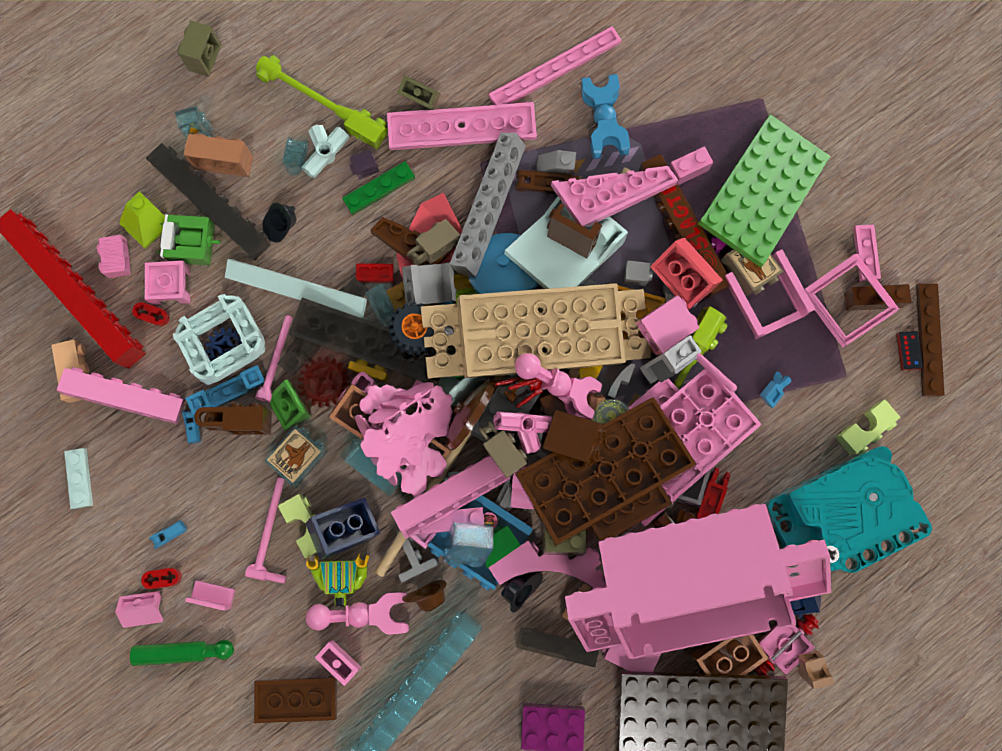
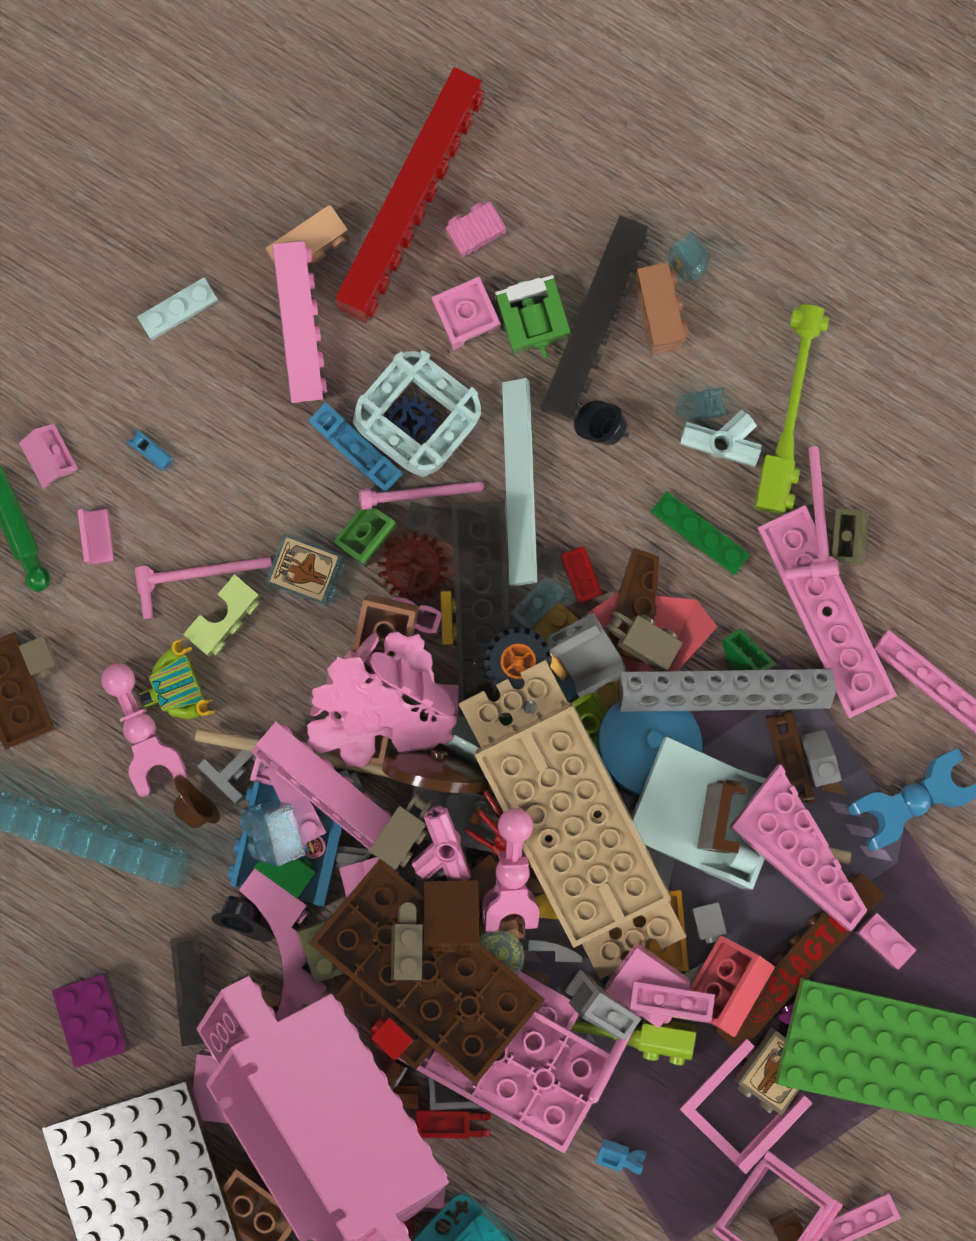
camera: 70 degrees right, 5 degrees up
(142, 220) = (537, 245): lime slope -> none
(152, 310) = (412, 308): red beam -> none
(161, 573) = (89, 468): red beam -> none
(192, 429) = (291, 424): dark azure bar -> none
(199, 48) = (798, 219): olive brick -> none
(236, 419) = (322, 478): reddish brown brick -> none
(280, 669) = (39, 657): none -> dark tan brick
(338, 662) = (73, 726): bright pink brick -> none
(342, 528) = (236, 667): dark blue brick -> none
(356, 458) = (332, 644): clear light blue wedge -> none
(363, 164) = (722, 501): clear purple brick -> none
(430, 112) = (824, 564): none -> bright pink bar
(467, 188) = (744, 653): none -> green slope
(583, 475) = (406, 945): none -> dark tan brick
(644, 511) = (390, 1037): none -> red brick
(686, 310) = (672, 1002): none -> bright pink plate

